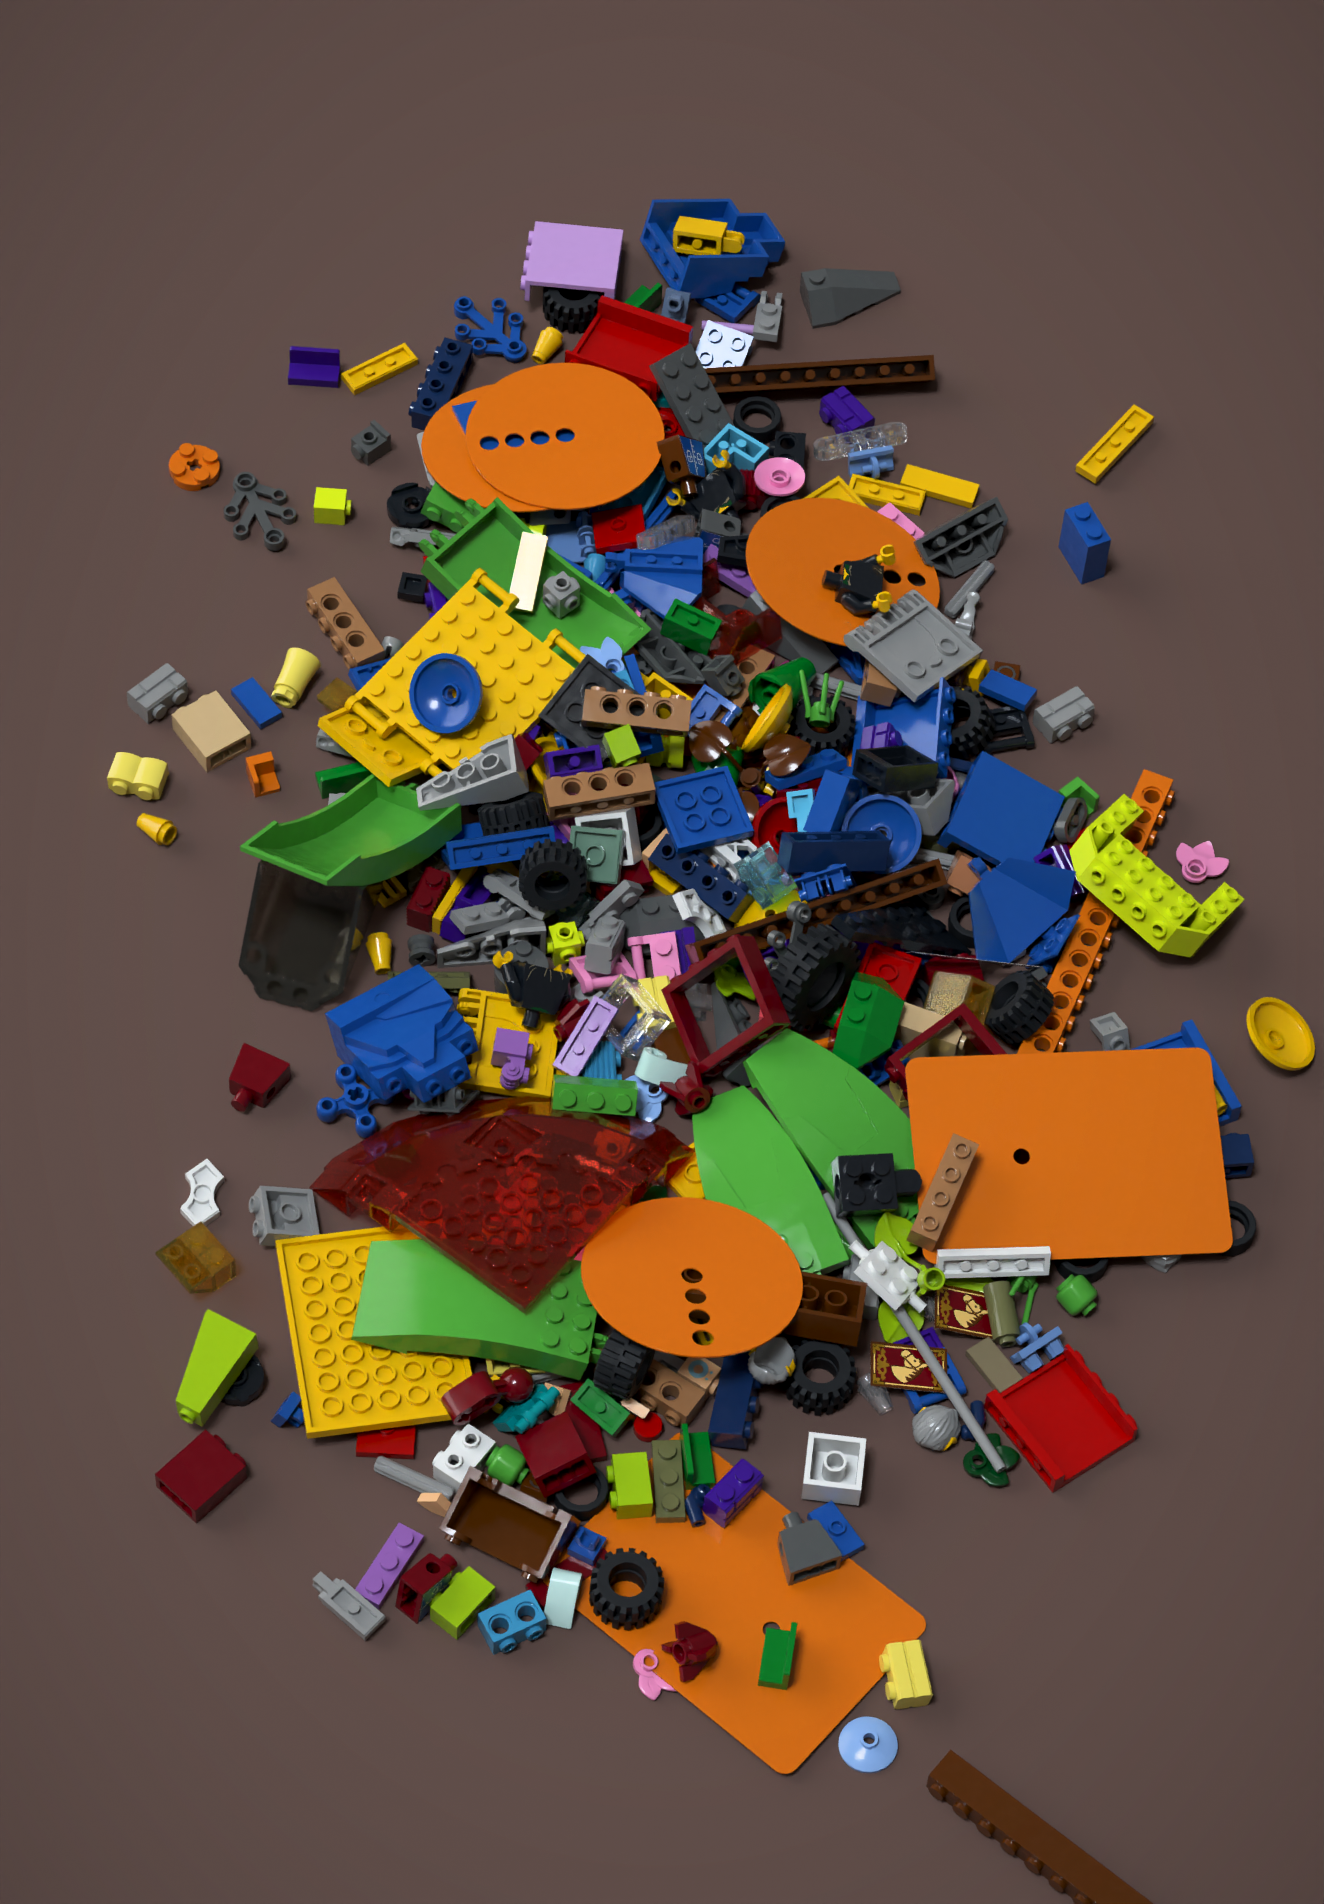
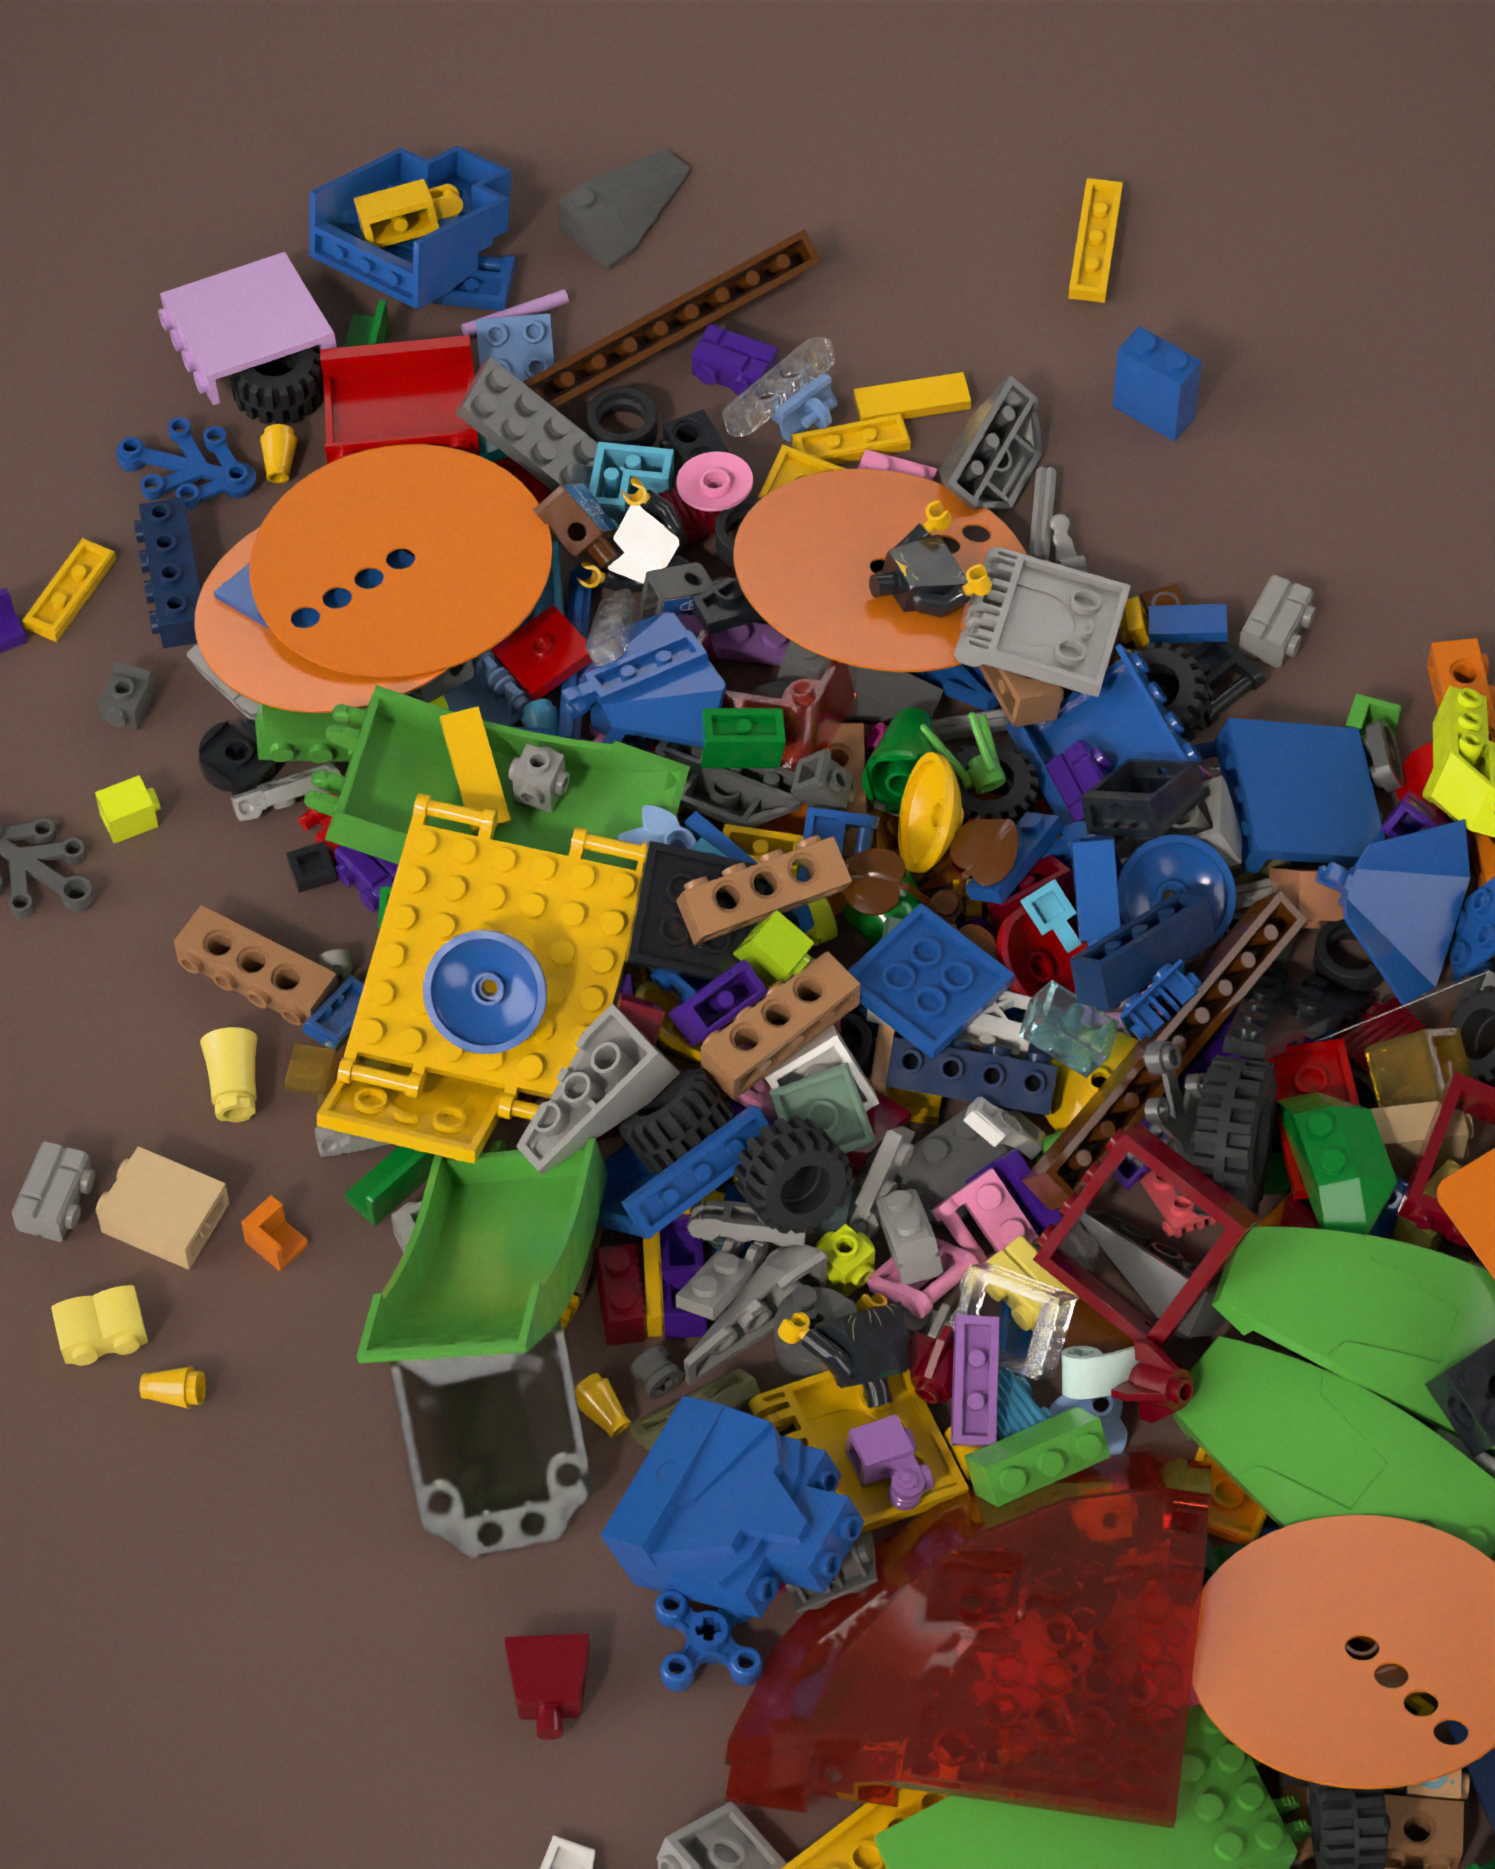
camera: 25 degrees left, 0 degrees up
(256, 703) = (198, 1136): blue tile -> none
(676, 305) = (421, 317): sand blue hips -> none
(730, 980) = (1114, 1199): lime plate -> none
(767, 318) = (547, 282): light grey hinge -> none

